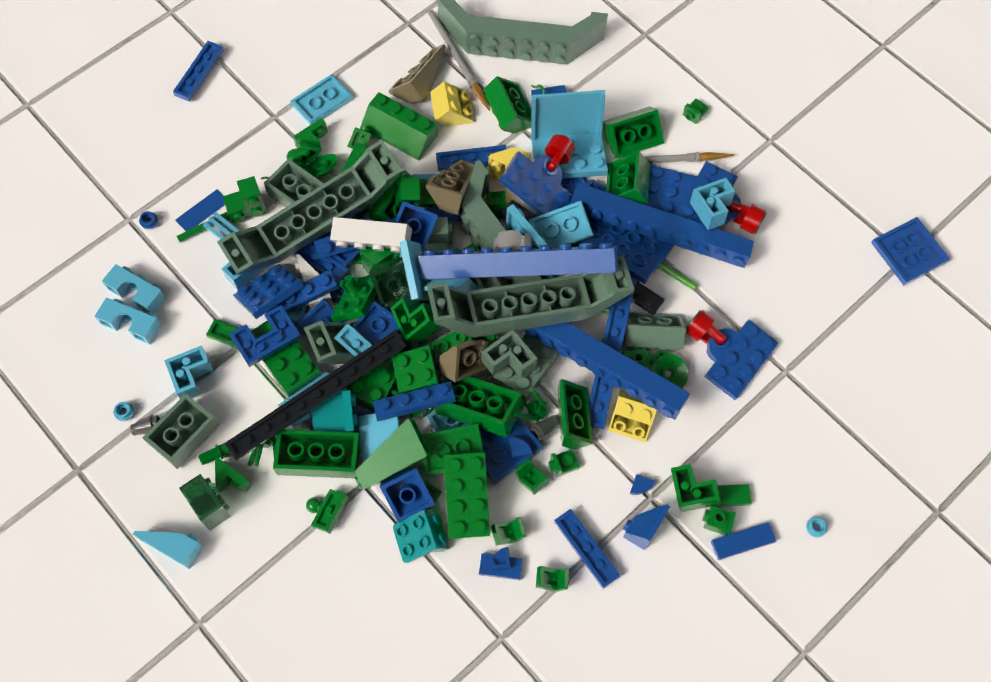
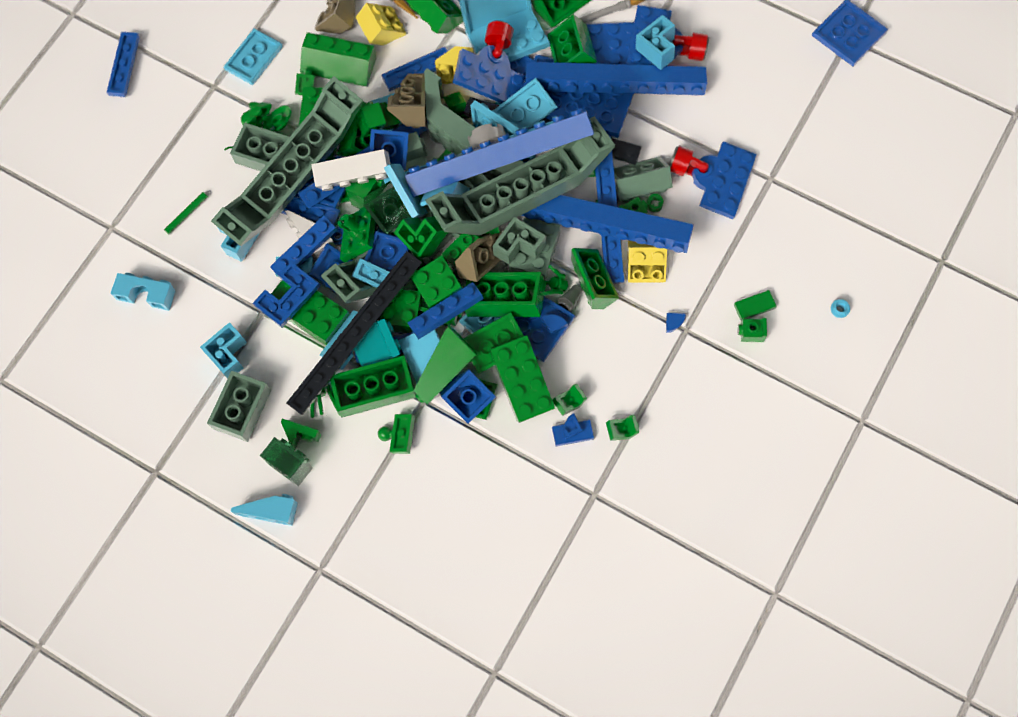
camera: 10 degrees left, 5 degrees up
(114, 313) = (133, 319): medium azure arch -> none
(123, 406) = (175, 401): medium azure plate -> none
(144, 425) = (203, 412): dark grey cone -> none
(145, 216) = (127, 219): blue plate -> none
(201, 211) = (178, 198): blue sticker -> none
(210, 455) = (281, 412): green axle -> none
(212, 220) = (190, 210): medium azure tile -> none
(220, 332) = (243, 306): green tile -> none
(245, 202) = (218, 177): green brick -> none
(267, 290) = (271, 253): blue plate -> none
(312, 133) = (256, 92): green slope -> none
(420, 535) = (491, 429): teal bracket -> none
(531, 477) = (573, 345): green bracket -> none
(563, 463) = (598, 324): green bracket -> none
(586, 549) = (644, 392): blue plate -> none
(644, 526) = (689, 356): blue slope -> none
(675, 365) = (671, 205): green dish -> none
(678, 276) = (645, 121): bright green bar -> none
(693, 494) = (723, 314): green brick -> none
(743, 541) = (779, 341): blue tile -> none

